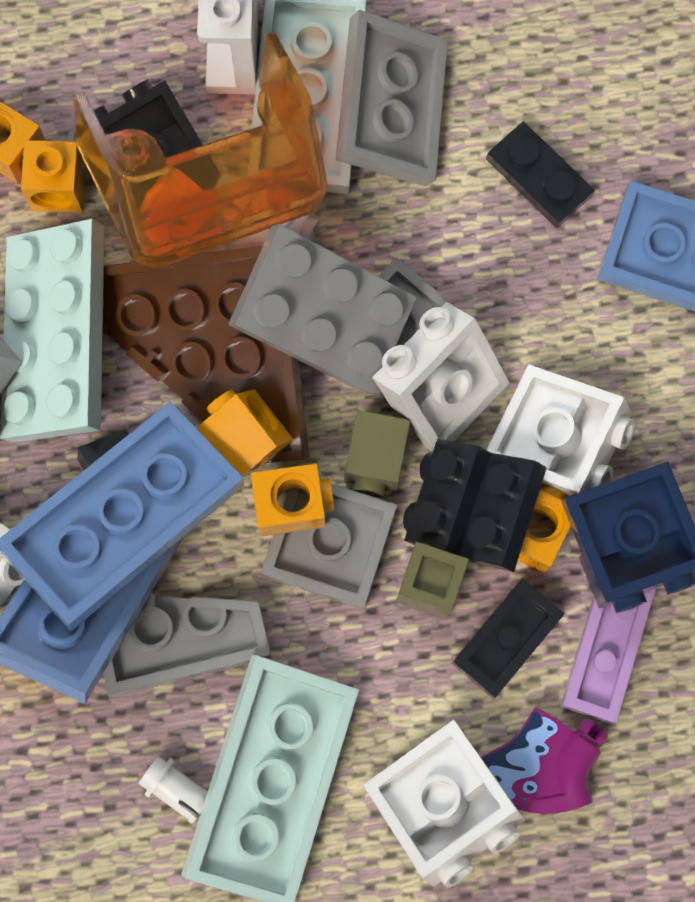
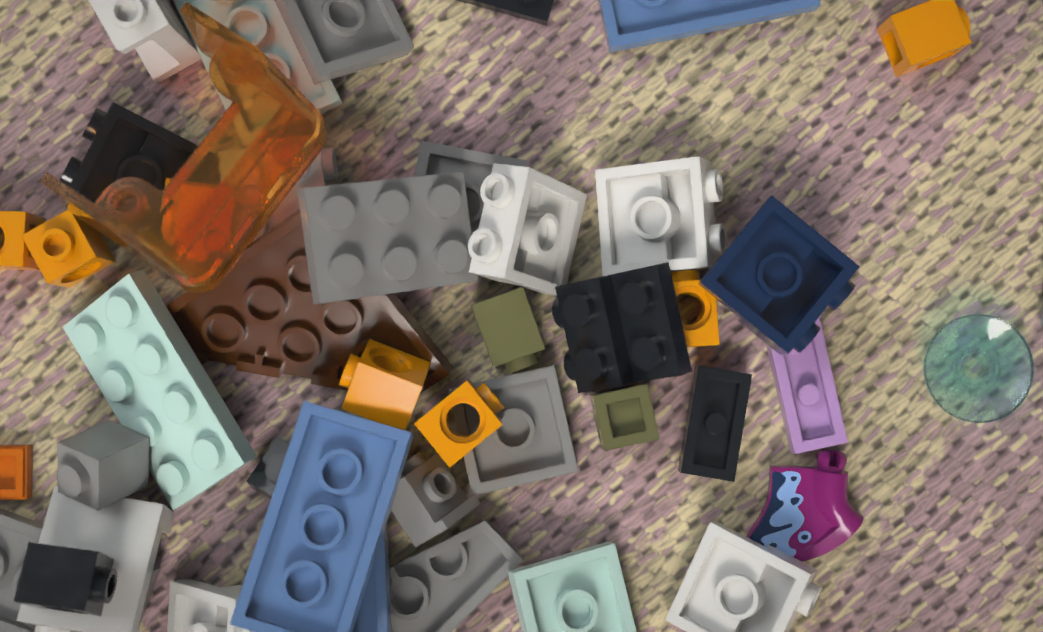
camera: 25 degrees left, 10 degrees up
(221, 552) = (429, 499): none -> light grey brick

